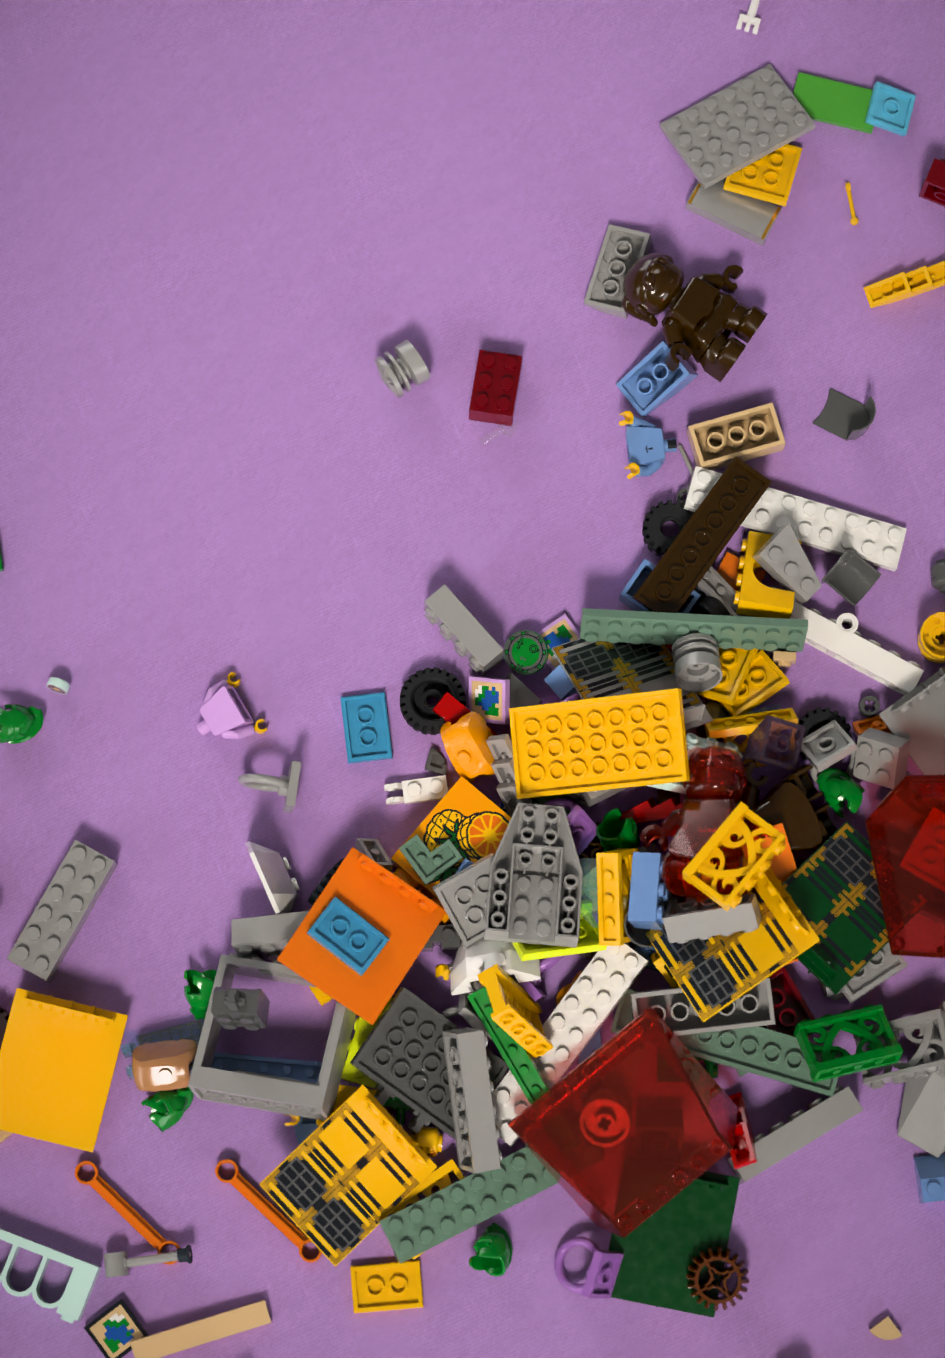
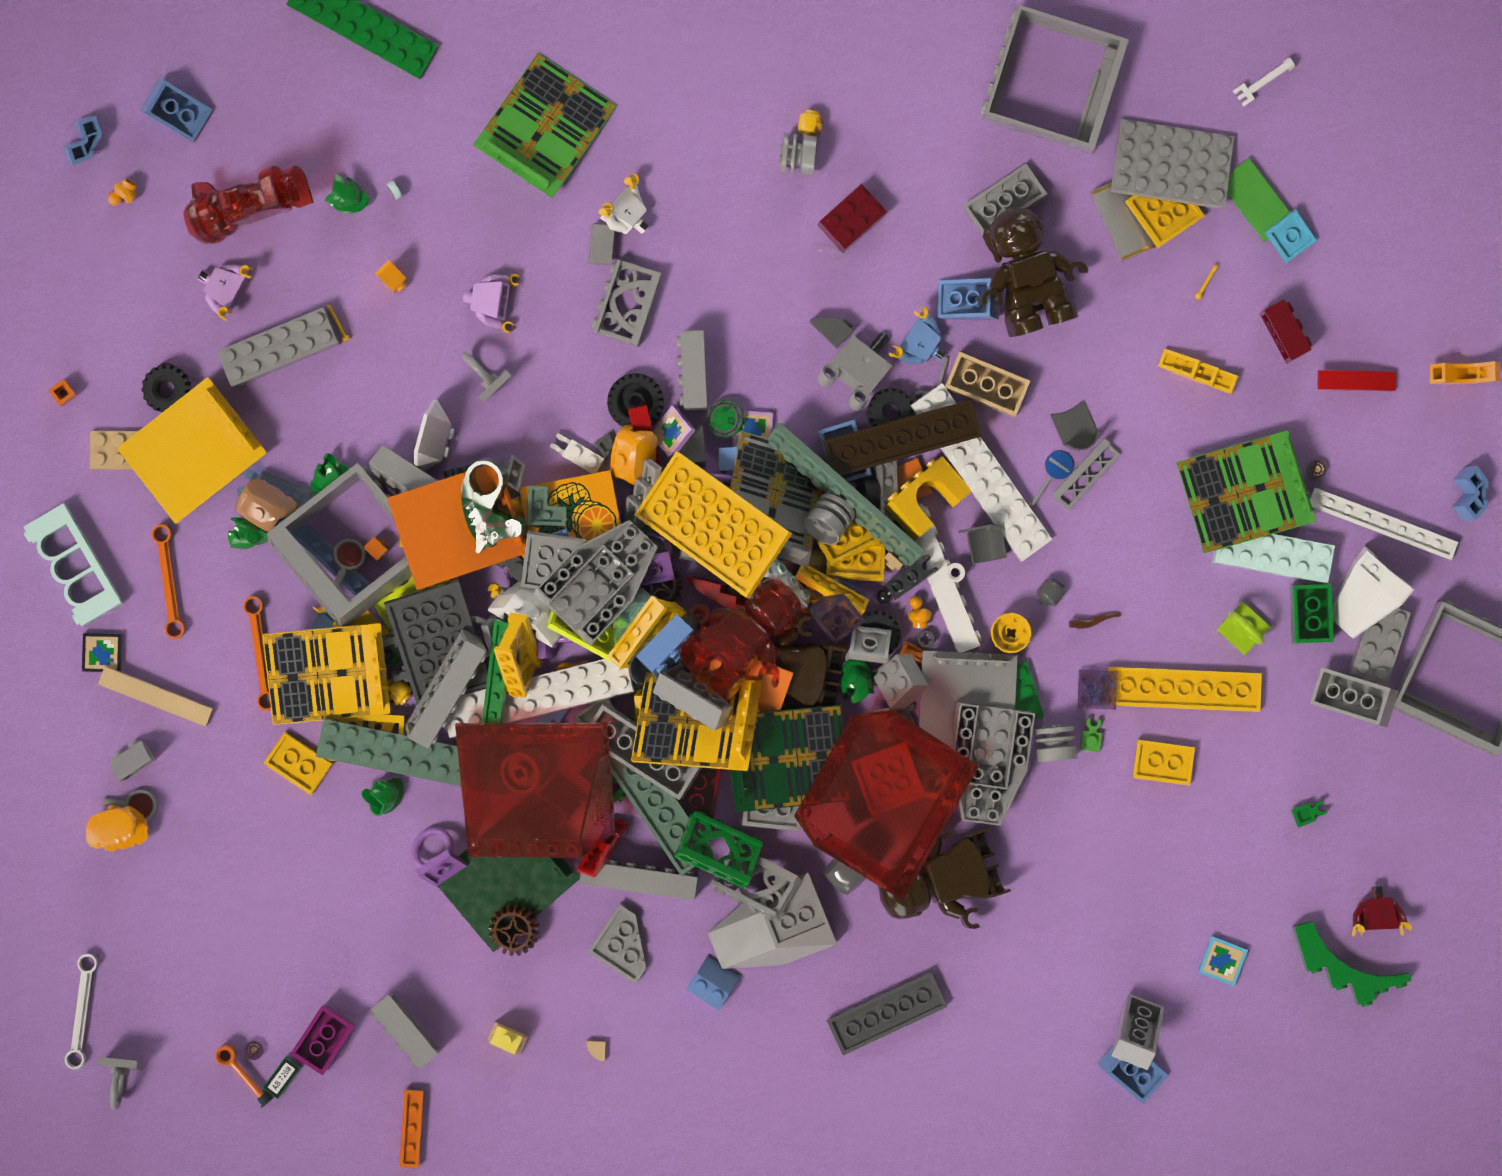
camera: 35 degrees right, 10 degrees up
(118, 763) = (392, 277): none -> light orange slope
(118, 854) = (345, 337): none -> yellow piece
(118, 1263) = (136, 610): light grey piece -> none
(151, 522) = (544, 125): none -> door
(240, 1008) = (339, 510): dark grey hinge -> none
(280, 1052) = (348, 557): none -> piece
(286, 535) = (626, 209): none -> white torso
(287, 586) = (600, 245): none -> light grey hinge
(300, 1023) = (376, 548): none -> orange plate
(348, 936) = (446, 519): dark azure tile -> none
(359, 590) = (648, 286): none -> light grey fence
(366, 728) = (577, 384): dark azure tile -> none
(380, 907) = (481, 511): none -> animal
(389, 335) = (810, 123): none -> yellow head
(557, 498) = (833, 329): none -> dark grey slope
(610, 511) = (858, 368): none -> light grey piece
(616, 832) = (683, 590): green helmet -> none
(623, 112) = (1099, 92): none -> light grey door
(734, 825) = (709, 662): yellow fence -> none
(788, 564) = (946, 500): light grey wedge -> none
(809, 666) = (906, 580): none -> black plate
(826, 1212) = (621, 945): none -> light grey plate
(844, 690) = (918, 615): none -> light orange animal
(857, 462) = (1058, 466): none -> blue piece
(880, 446) = (1080, 469): none -> light grey fence

